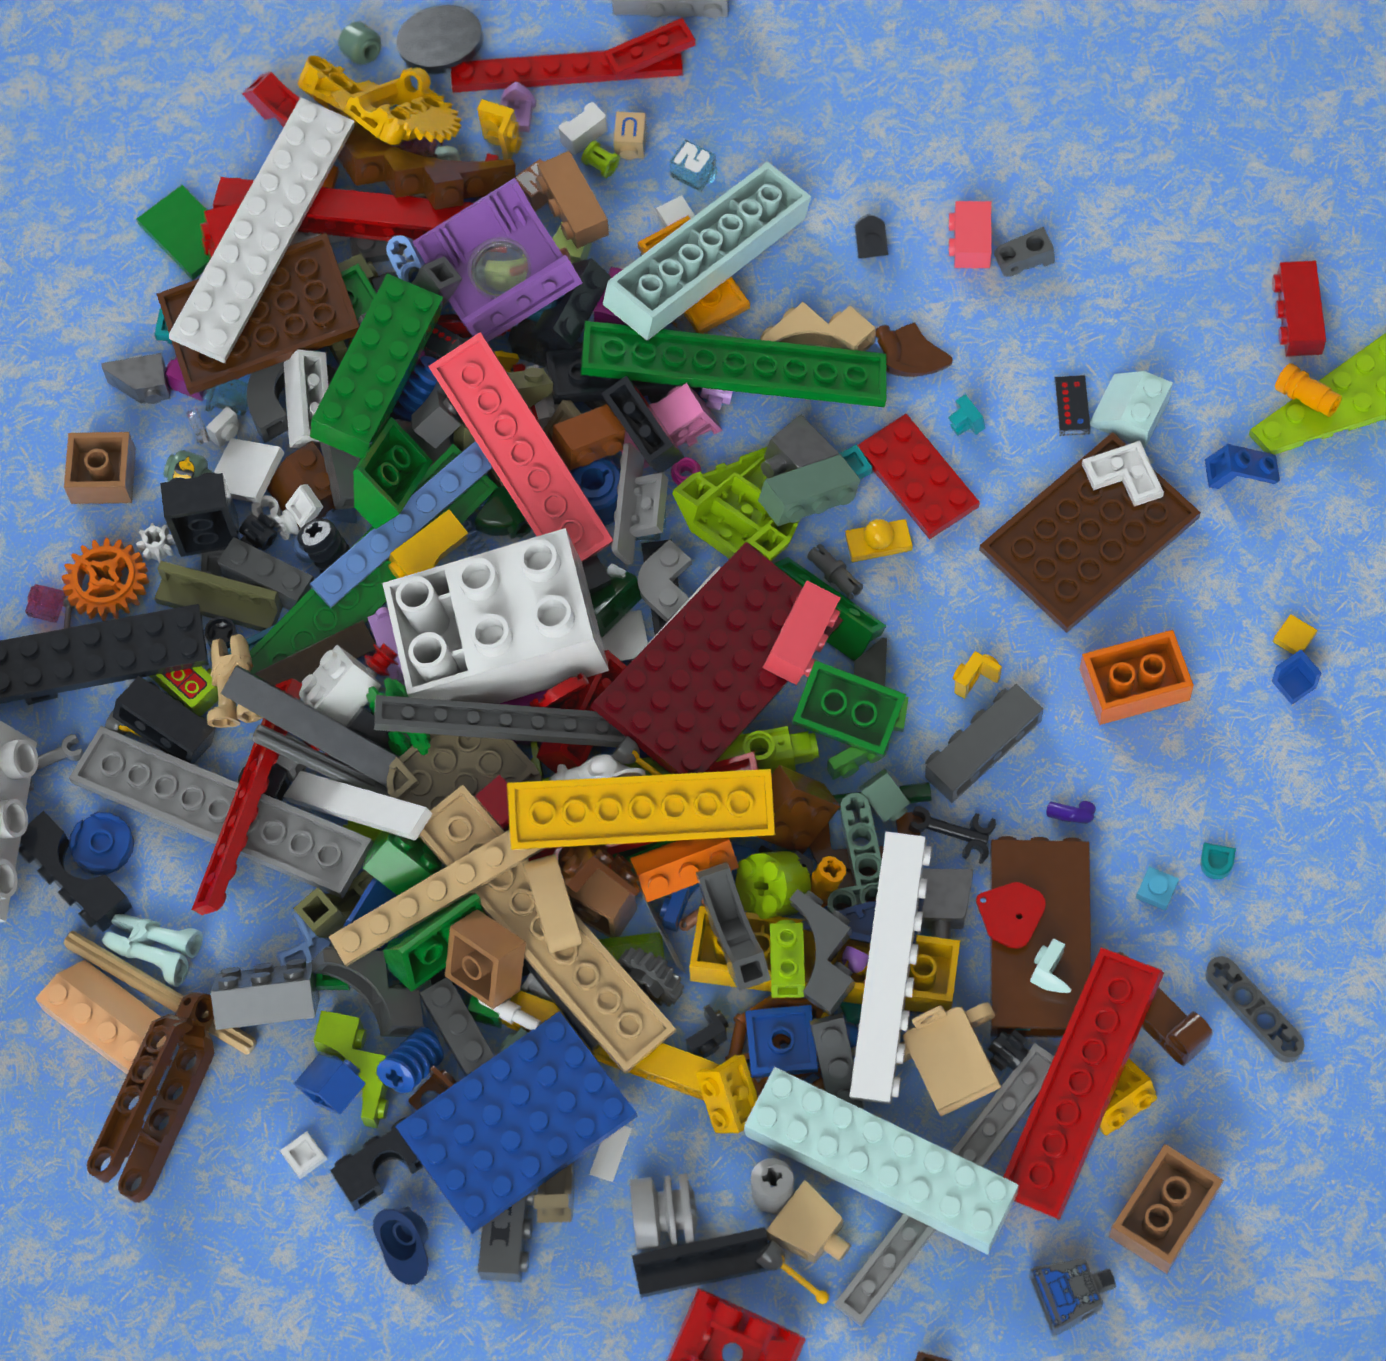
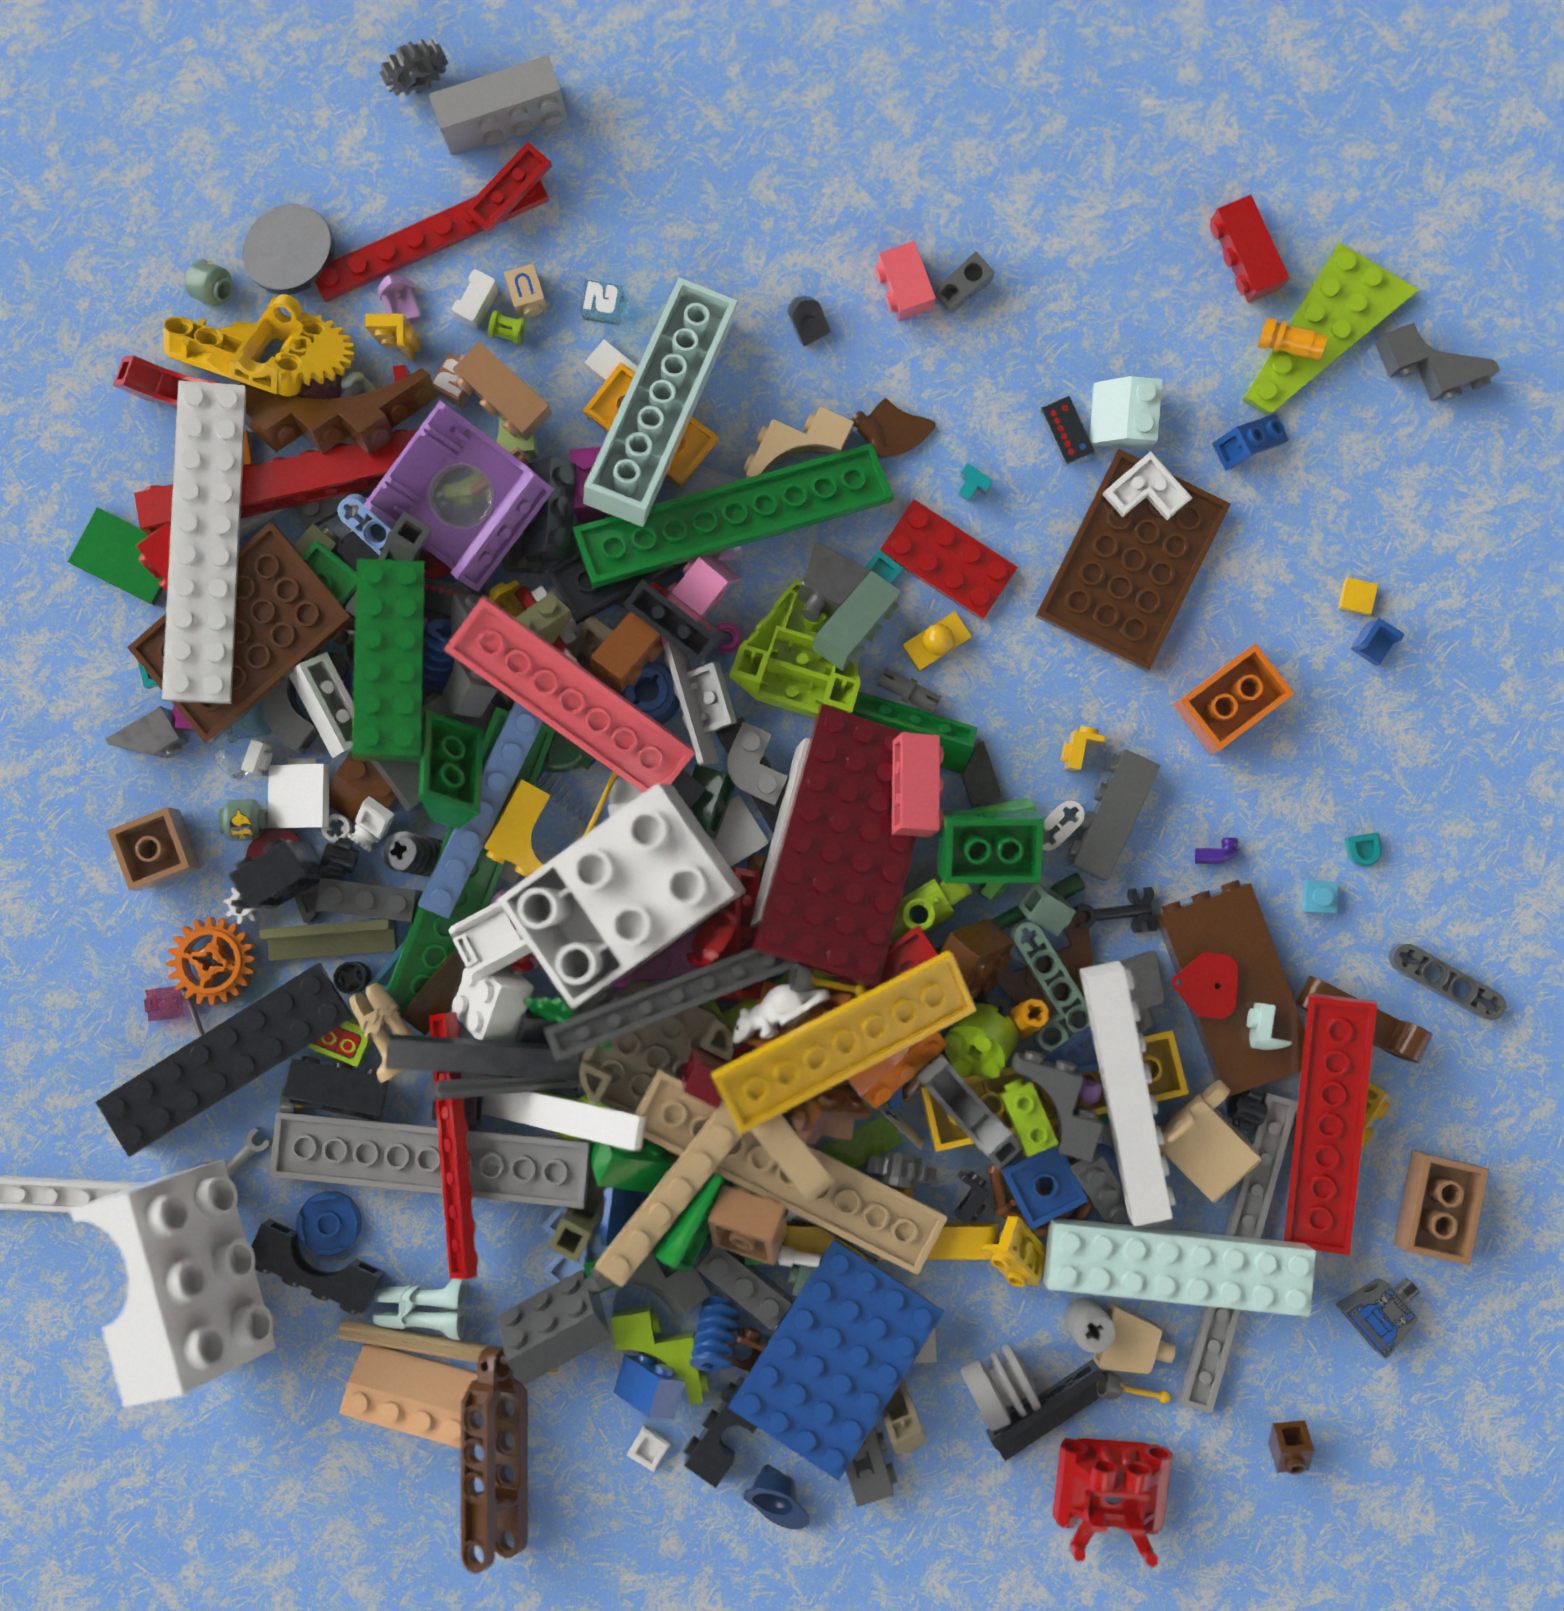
camera: 30 degrees left, 20 degrees up
(360, 632) = (488, 941): none -> white container
(925, 730) = (1066, 829): none -> white beam

